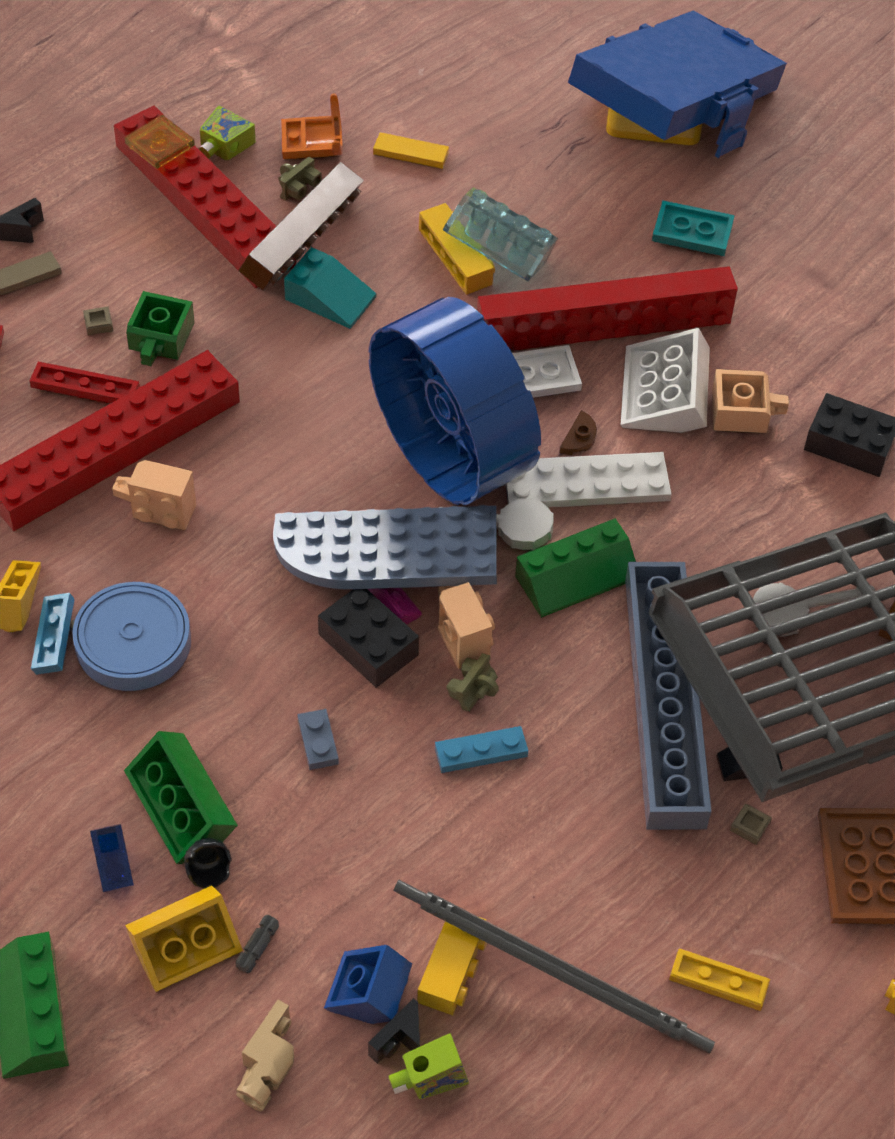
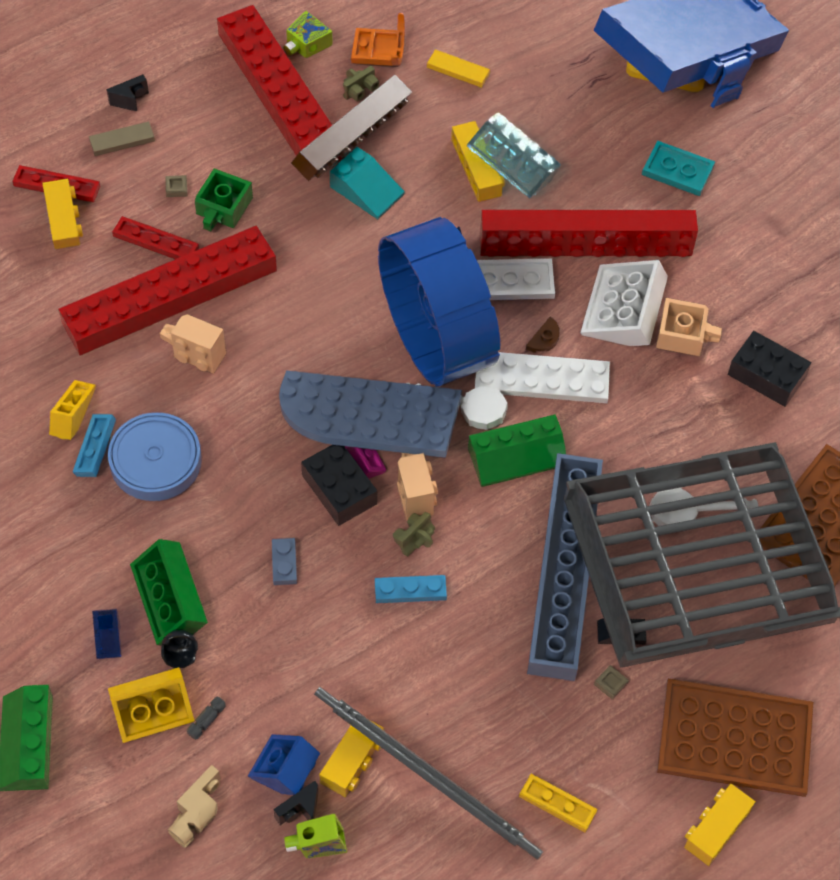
camera: 10 degrees right, 5 degrees up
(159, 141) = (250, 38): clear yellow plate -> none

